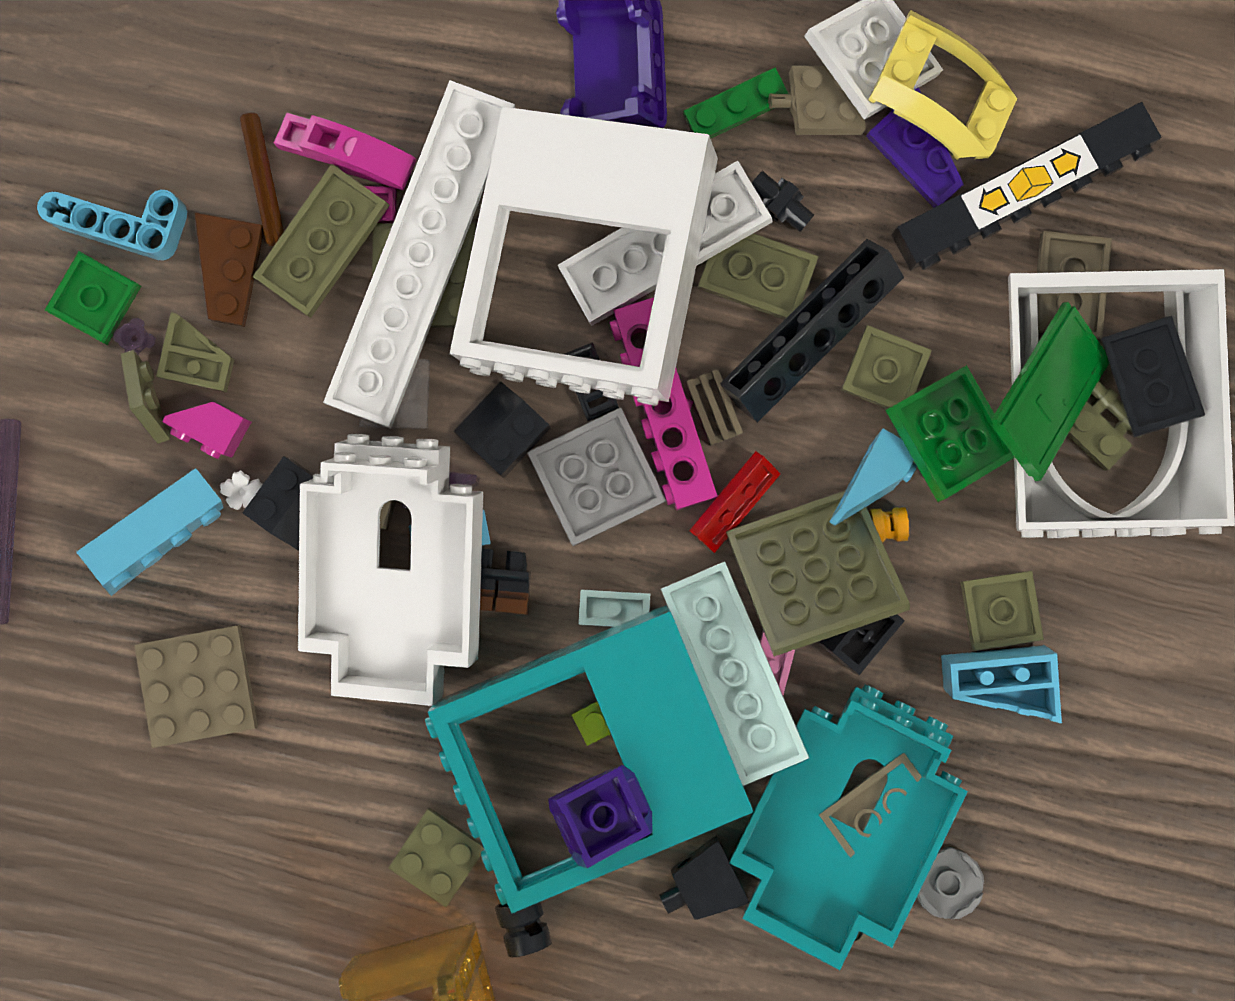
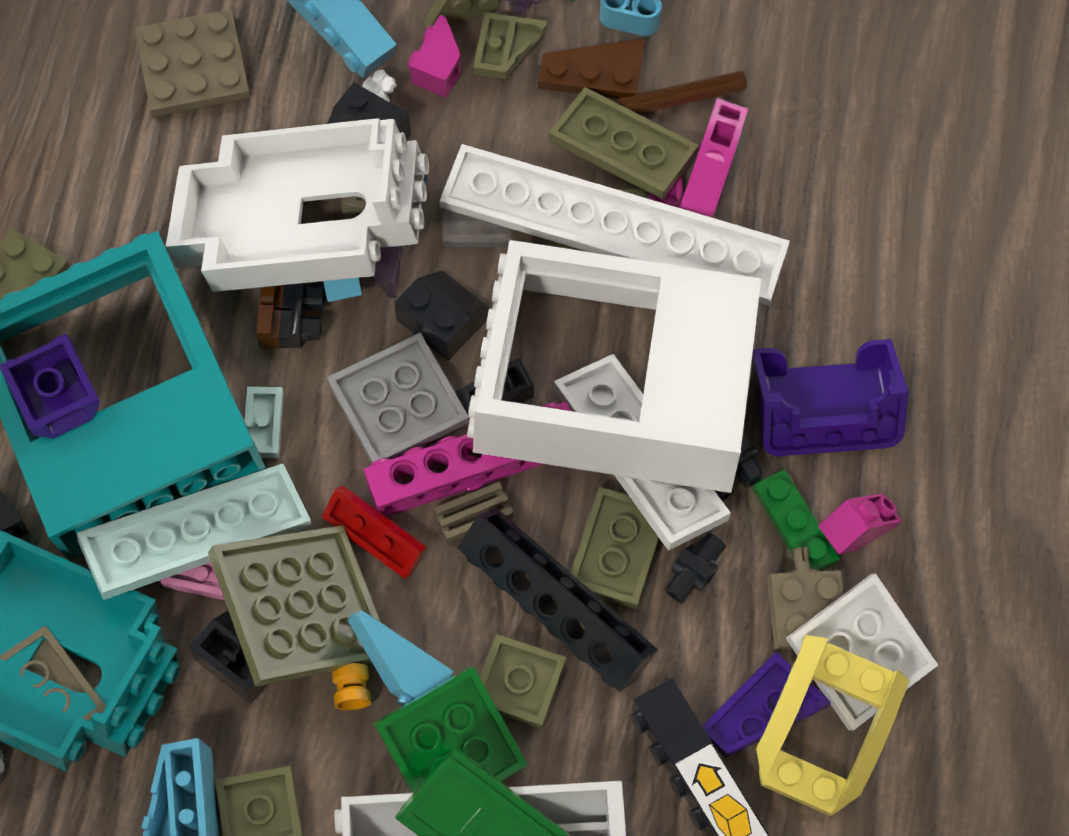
camera: 85 degrees right, 20 degrees down
(743, 43) = (859, 522): none -> dark pink slope

